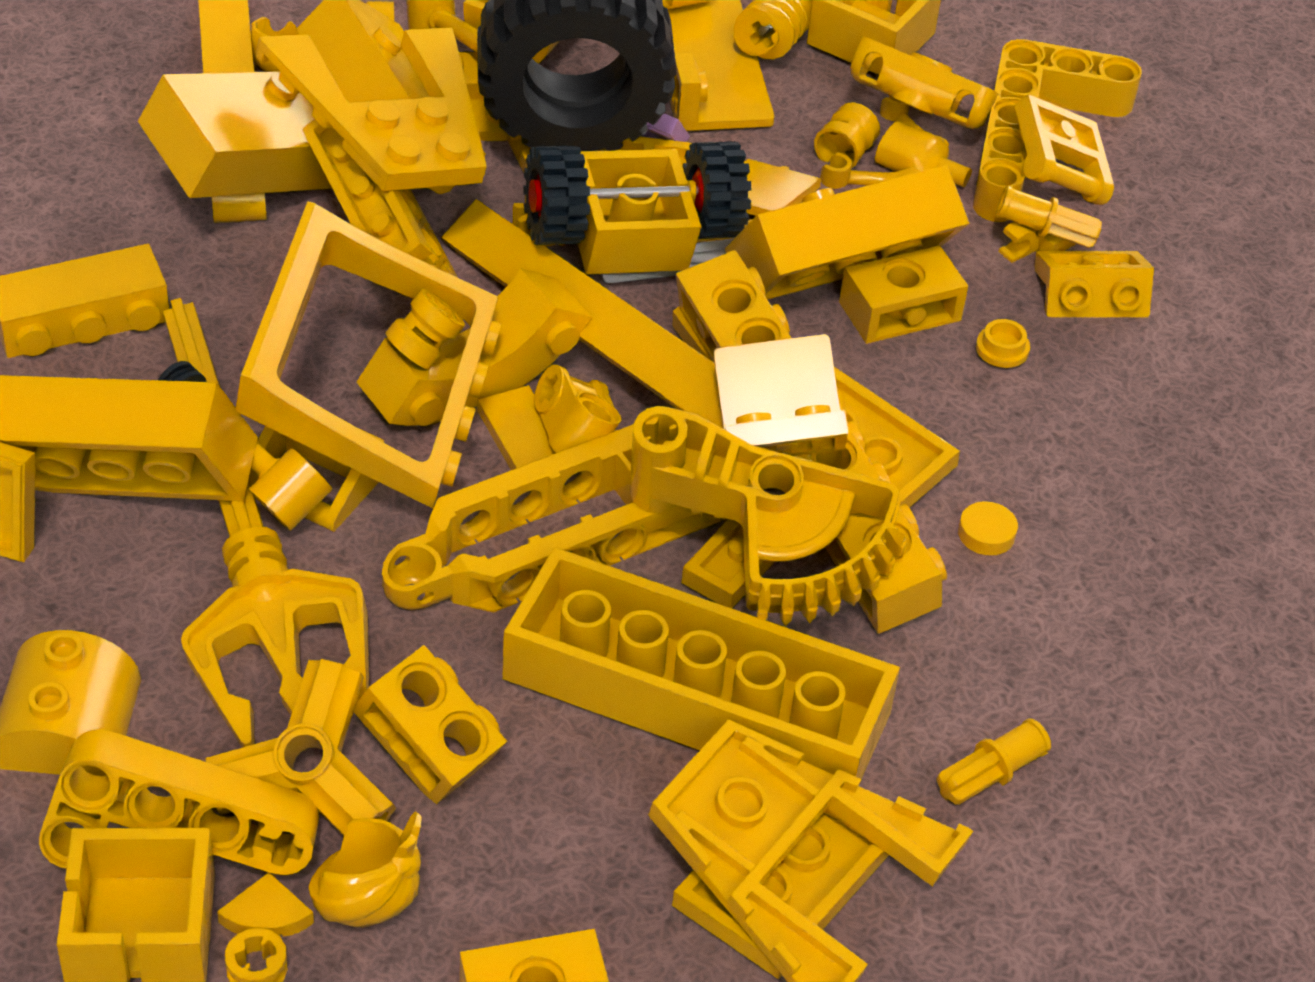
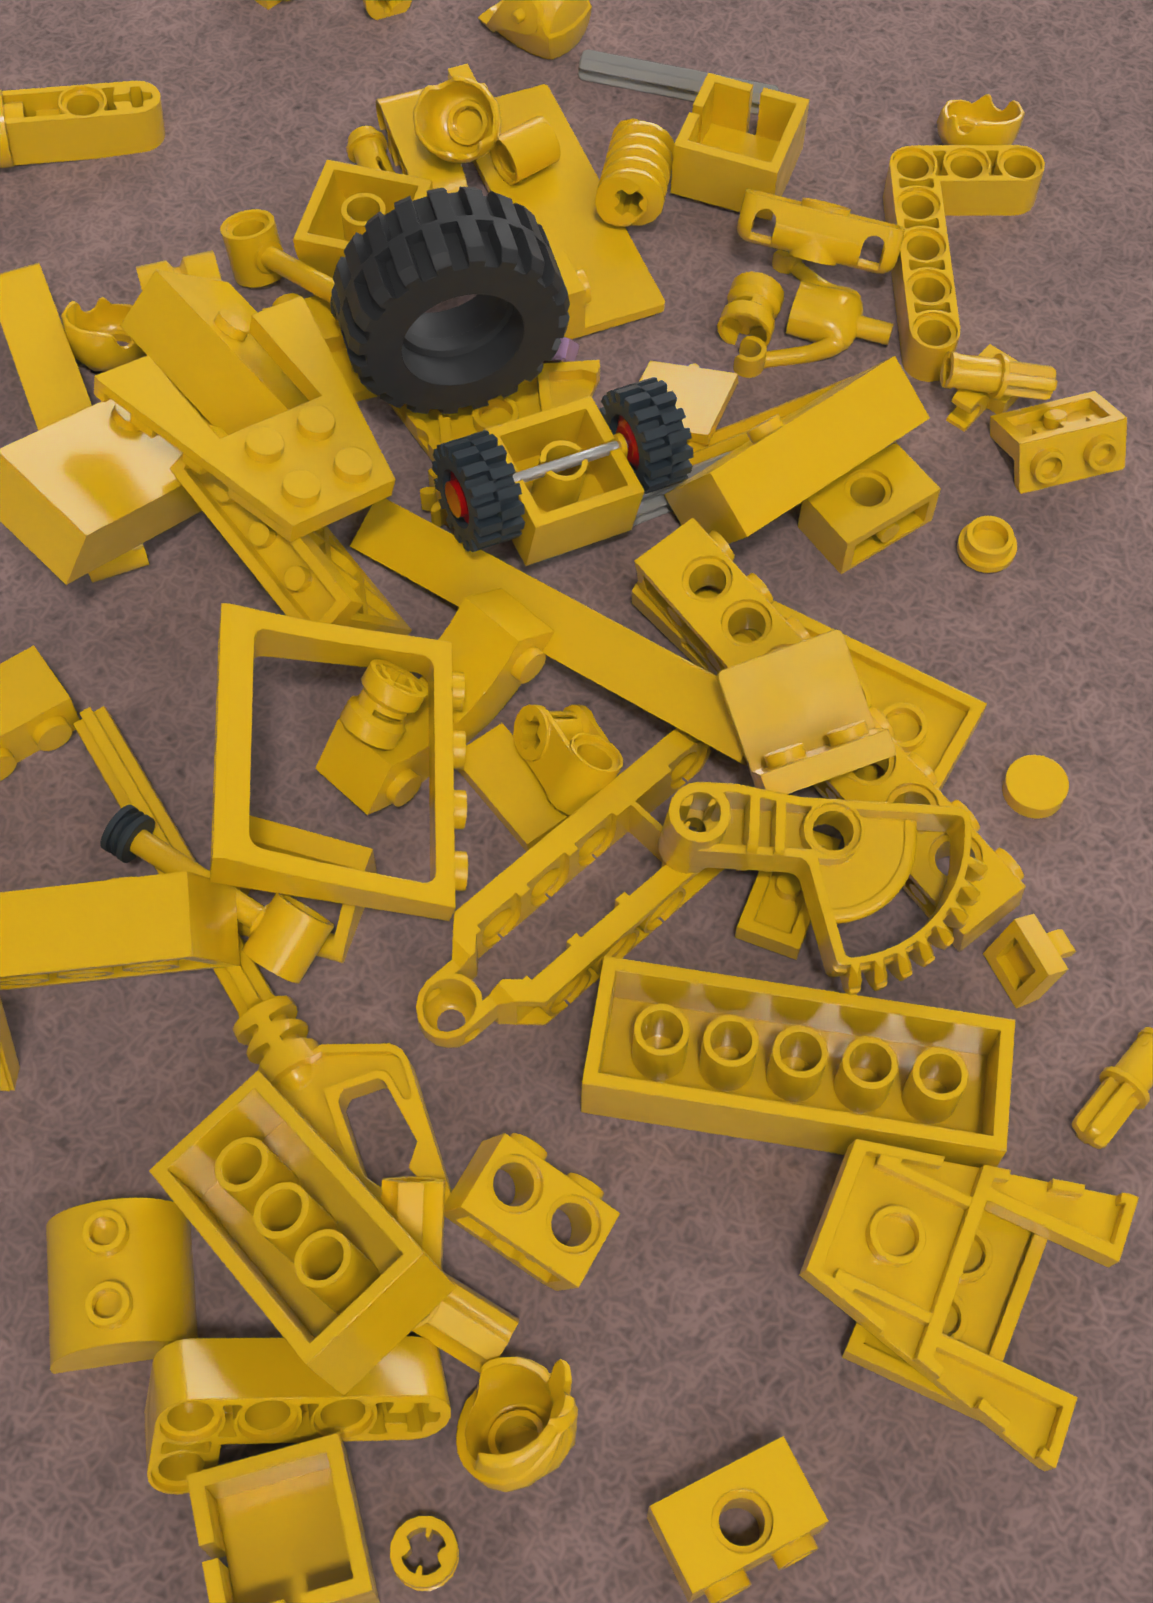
camera: 10 degrees left, 15 degrees up
(230, 675) = (301, 1233): none -> yellow brick
(266, 906) = (415, 1483): yellow tile -> none
(936, 645) = (1028, 959): none -> yellow tile
(1063, 135) = (992, 267): yellow plate -> none
(1098, 38) = (979, 122): none -> yellow hair

